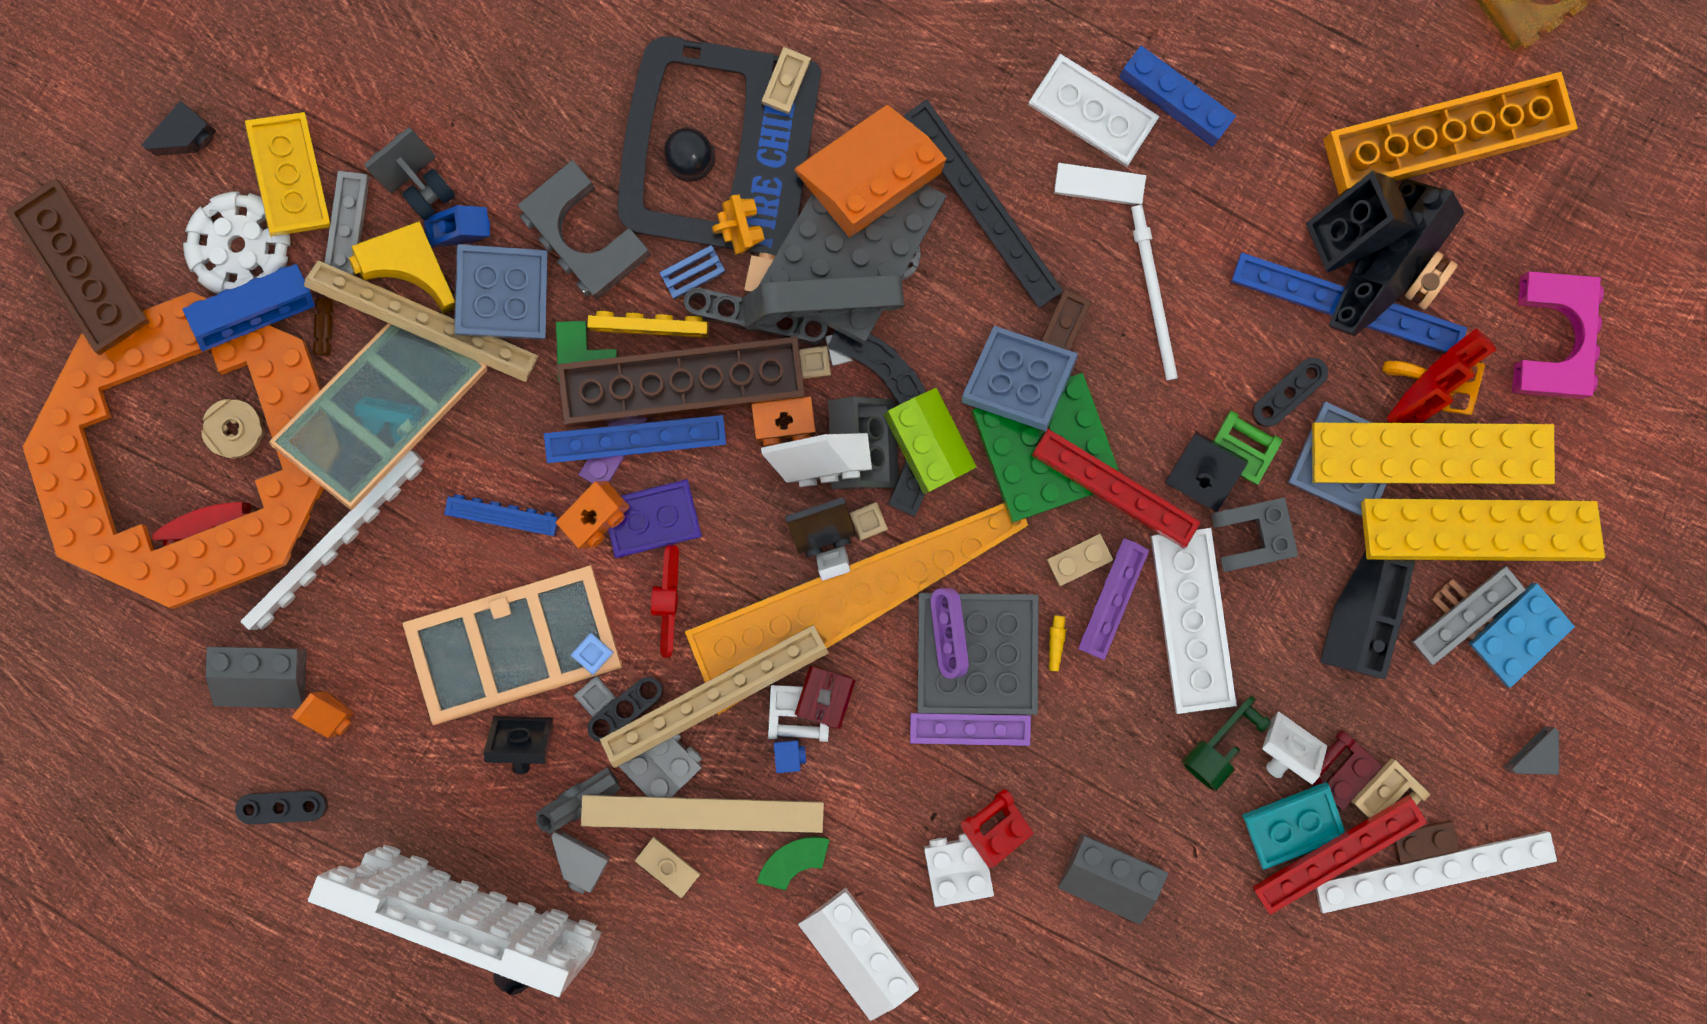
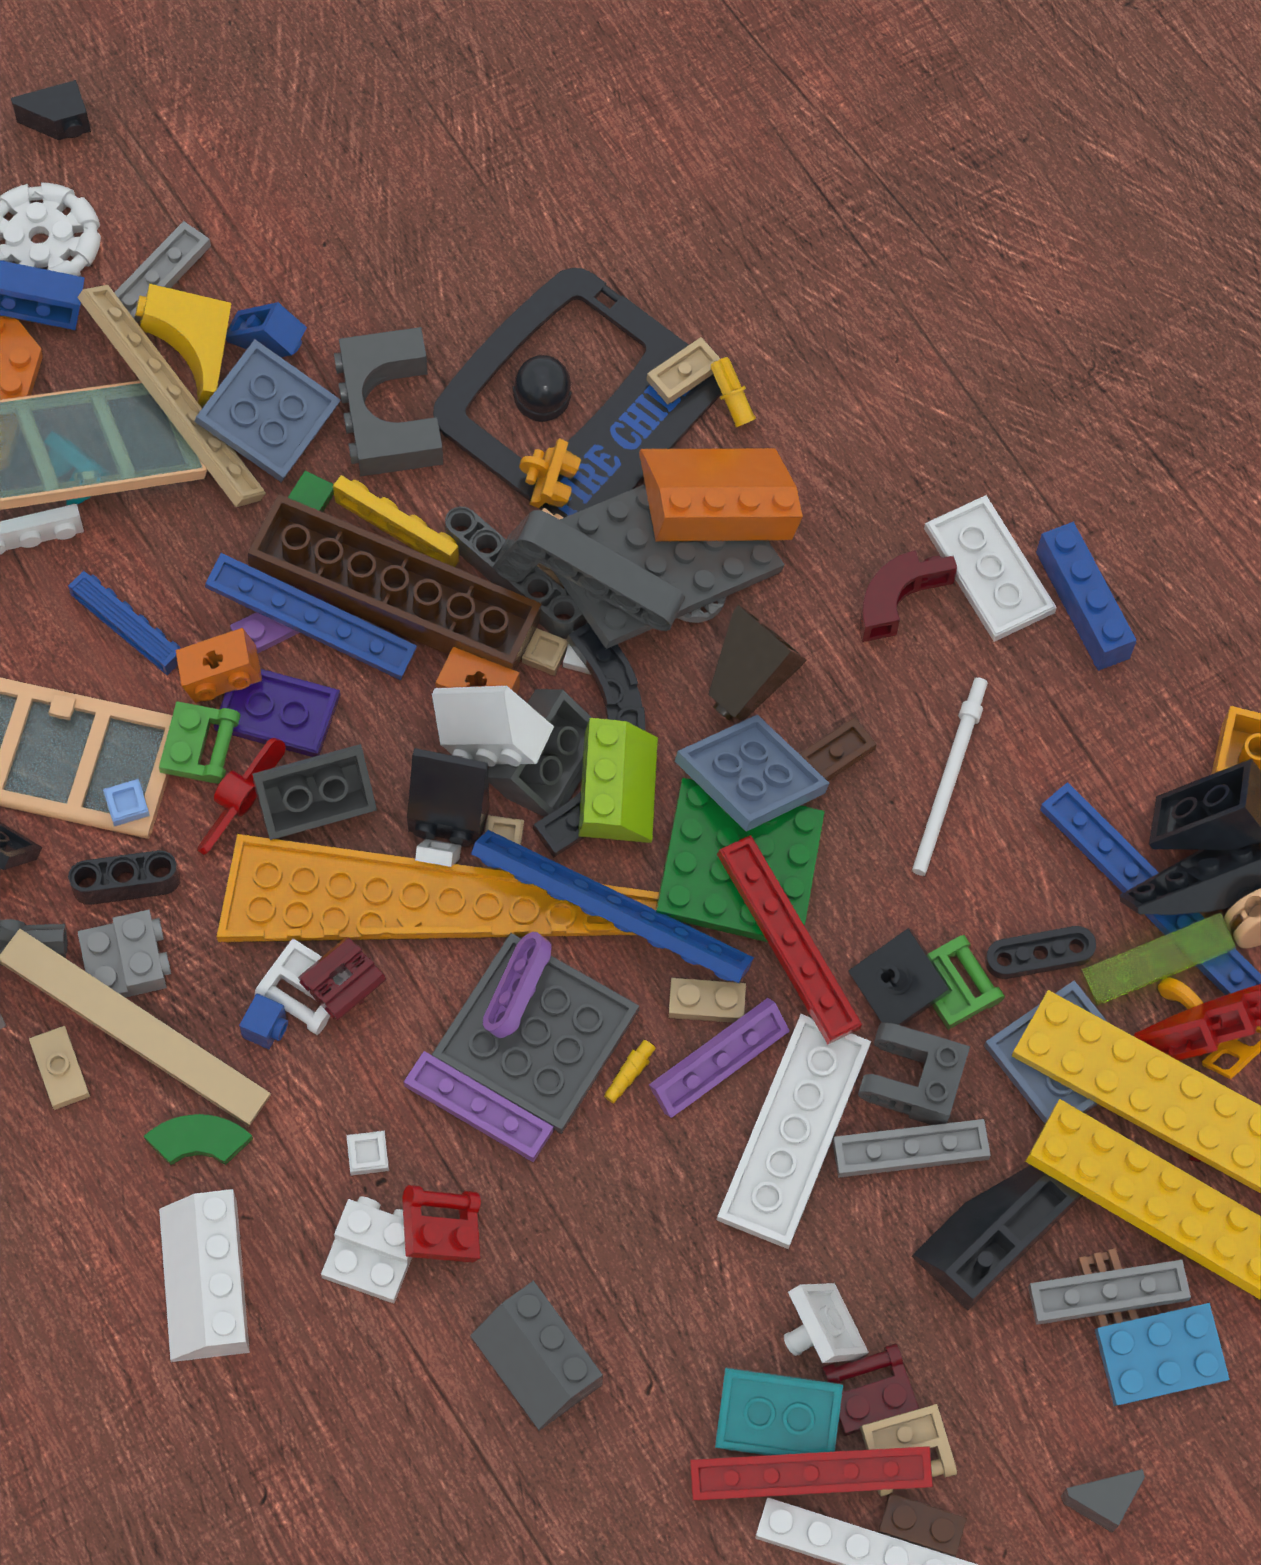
camera: 25 degrees right, 20 degrees down
(287, 174) = (131, 197): yellow plate -> none
(322, 326) = (69, 353): reddish brown axle -> none
(402, 161) = (252, 242): dark grey plate -> none
(595, 696) = (99, 845): light grey tile -> none
(606, 583) = (188, 738): none -> bright green plate
(687, 262) = (476, 494): medium blue tile -> none
(713, 696) = (224, 907): tan plate -> none
(724, 575) = (314, 792): none -> dark grey slope
(831, 78) = (732, 391): none -> yellow axle
(913, 803) = (367, 1153): none -> white tile
(970, 292) = (750, 666): none -> dark brown slope
(981, 536) = (613, 906): none -> blue plate
(987, 209) = (819, 601): black plate -> none
(1032, 182) = (895, 582): none -> dark red arch
(1099, 184) = (953, 640): white tile -> none
(1207, 763) = (730, 1286): dark green piece -> none
(1278, 587) = (911, 1148): none -> light grey plate
(1375, 351) = (1158, 959): none -> clear neon green tile

